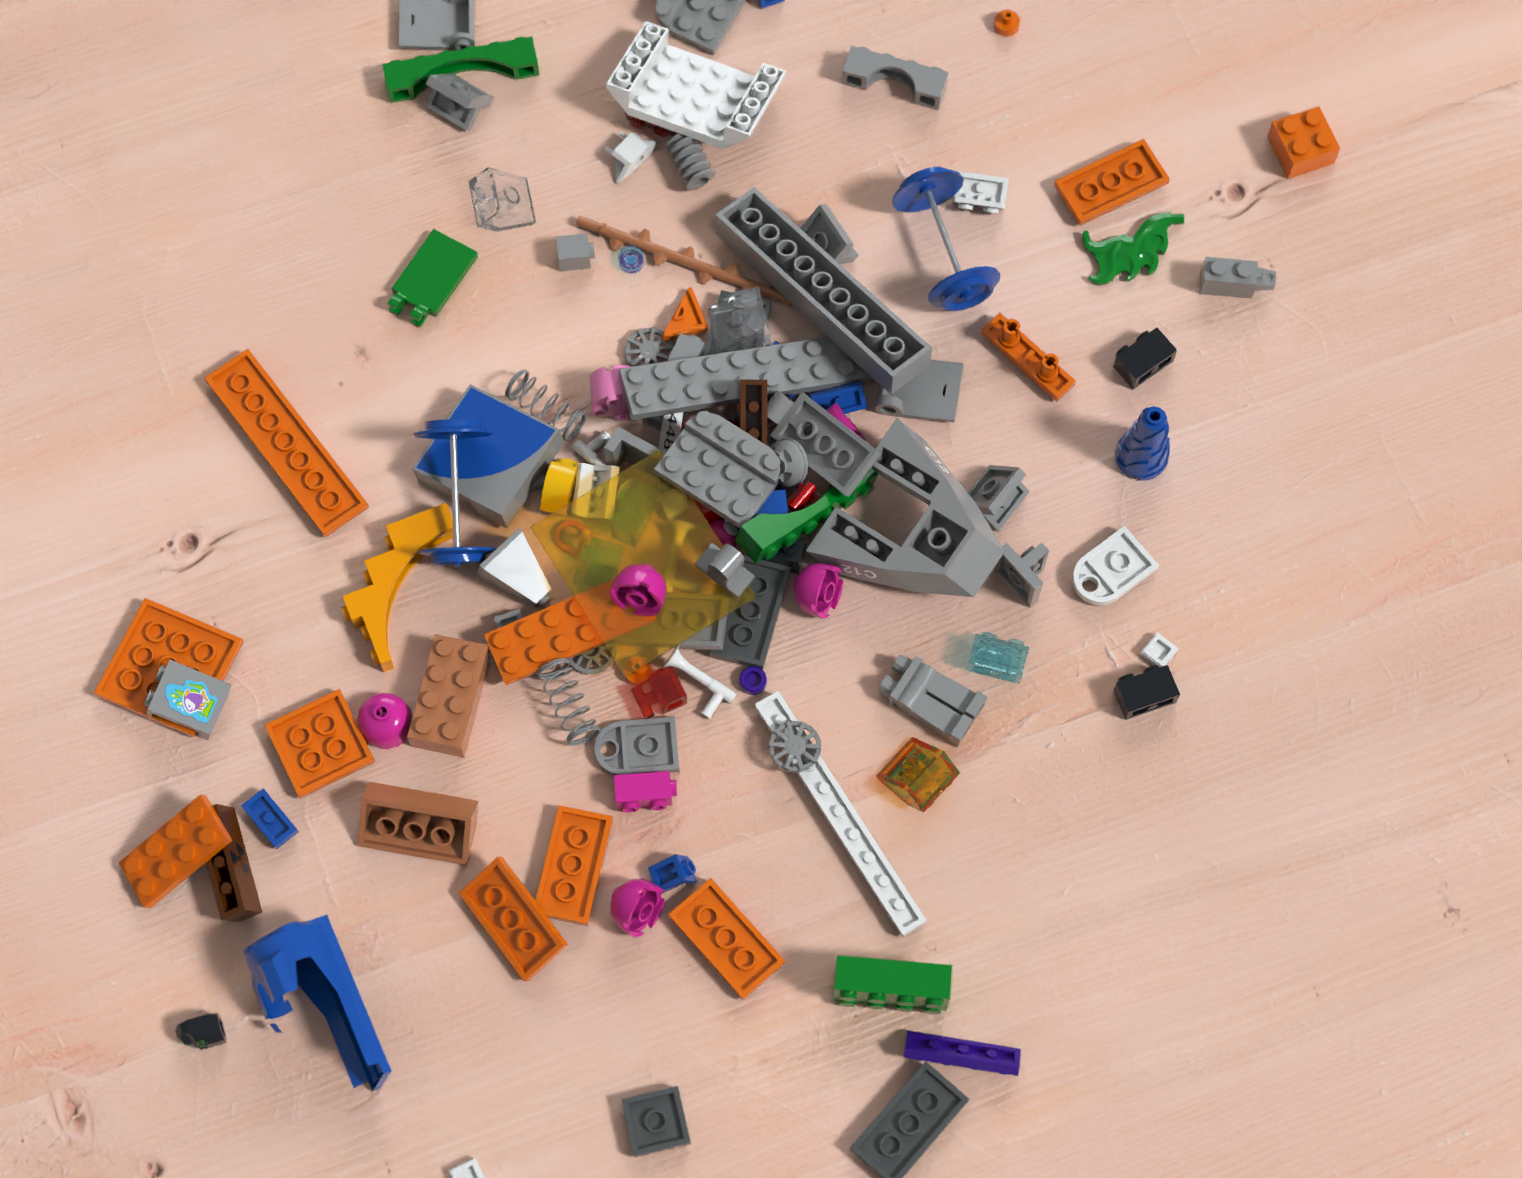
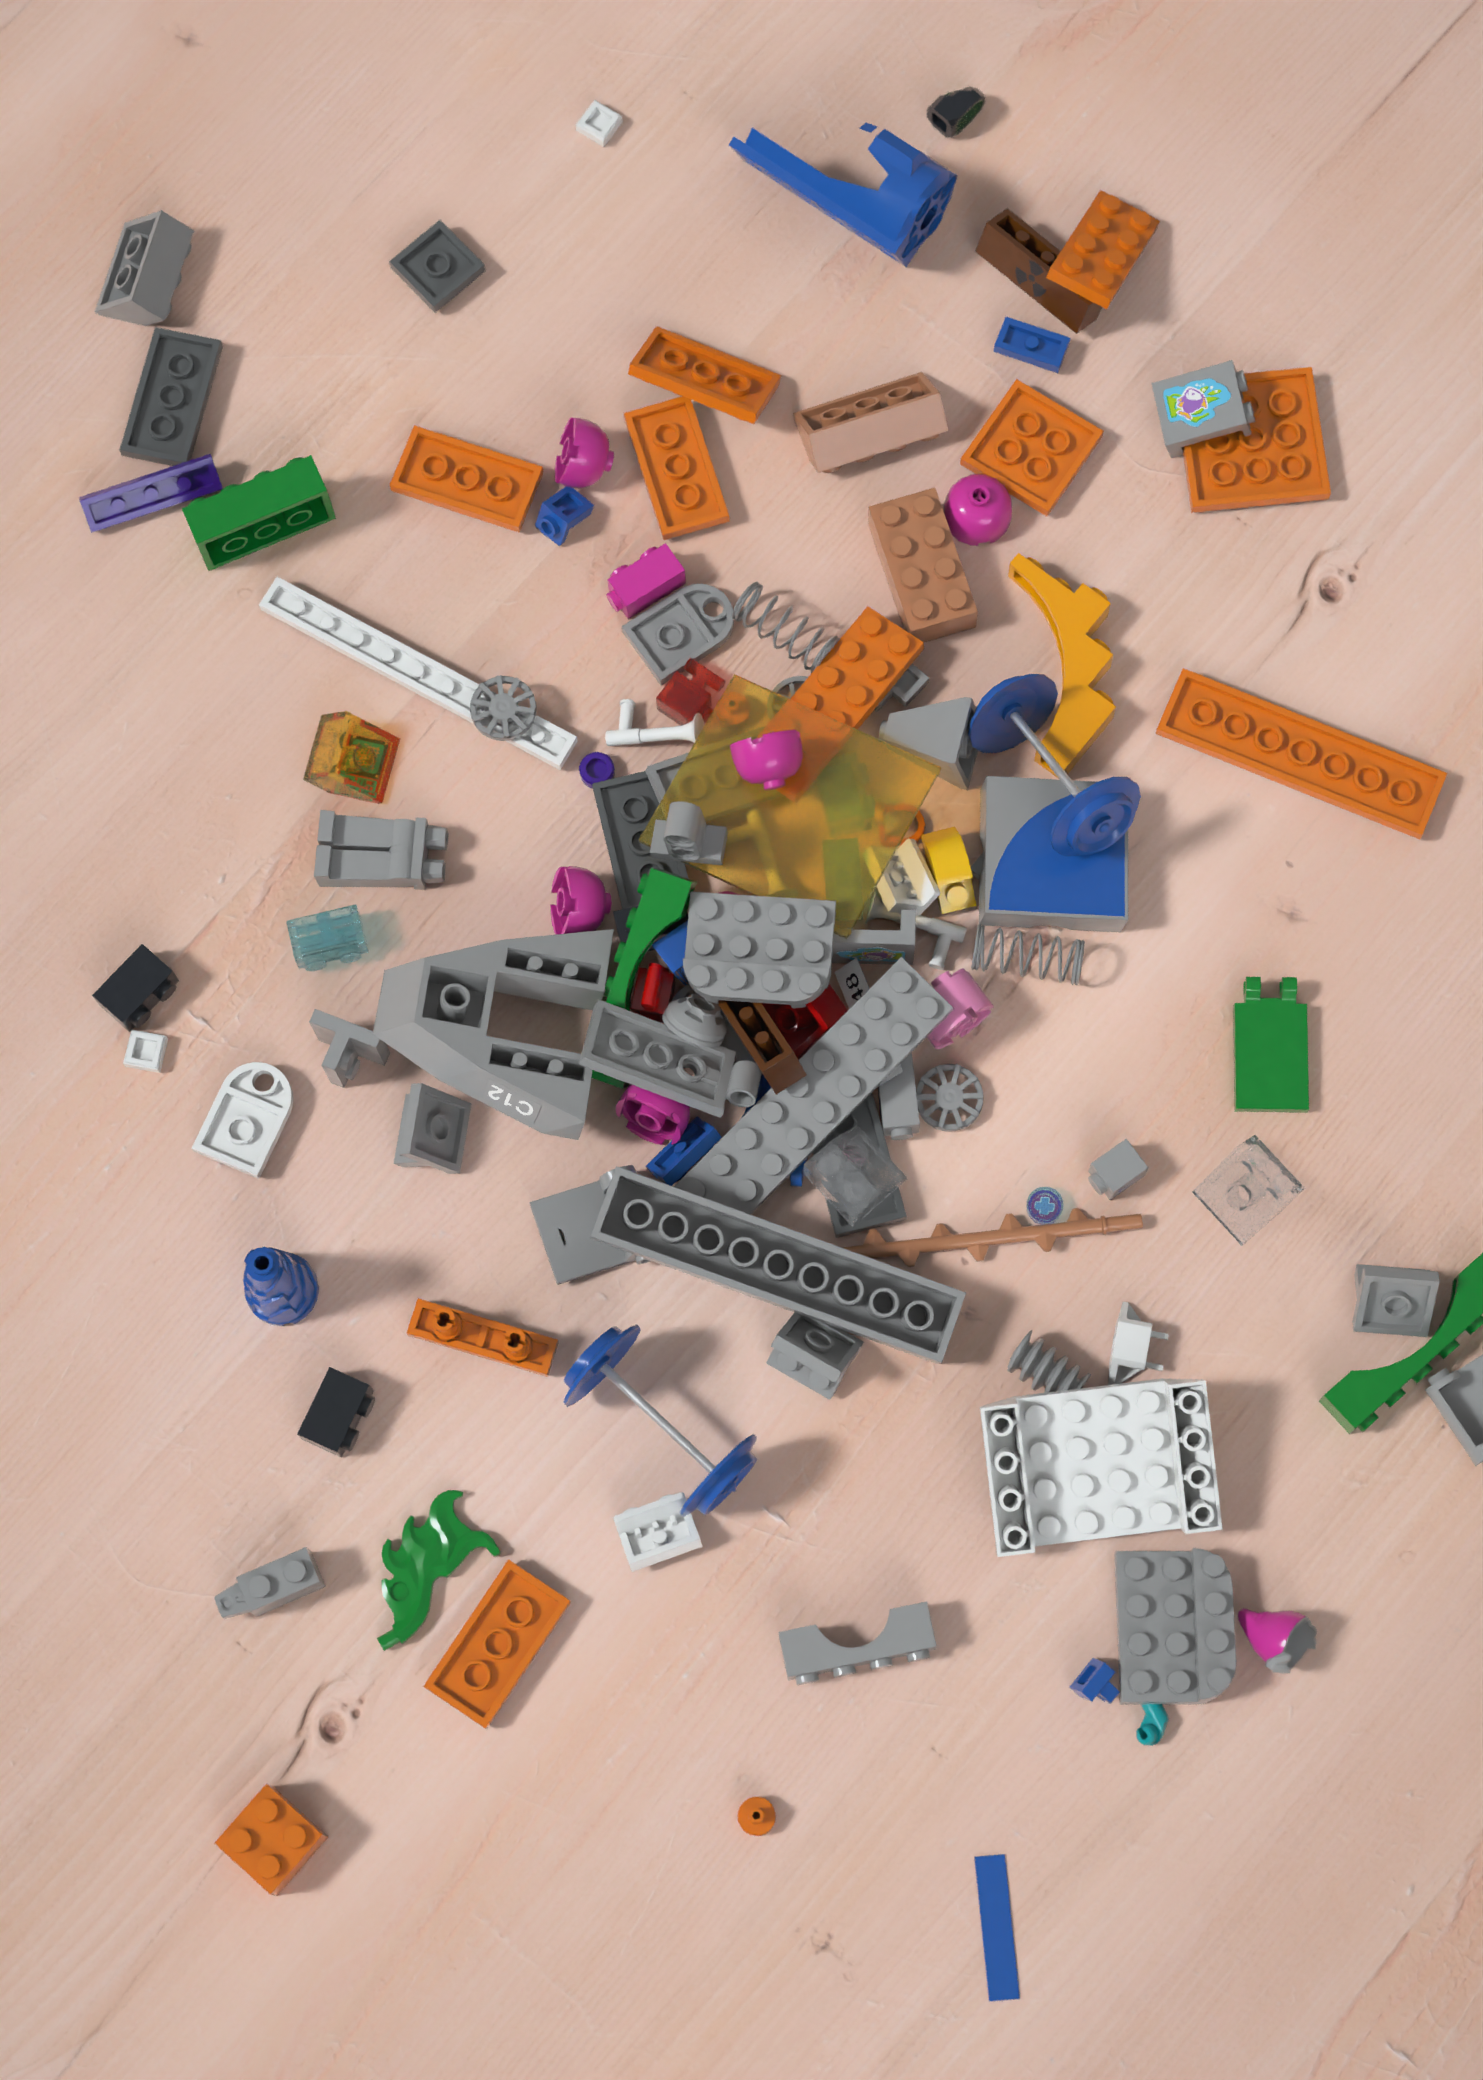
camera: 155 degrees right, 5 degrees up
(686, 319) = (928, 1160): orange tile -> none

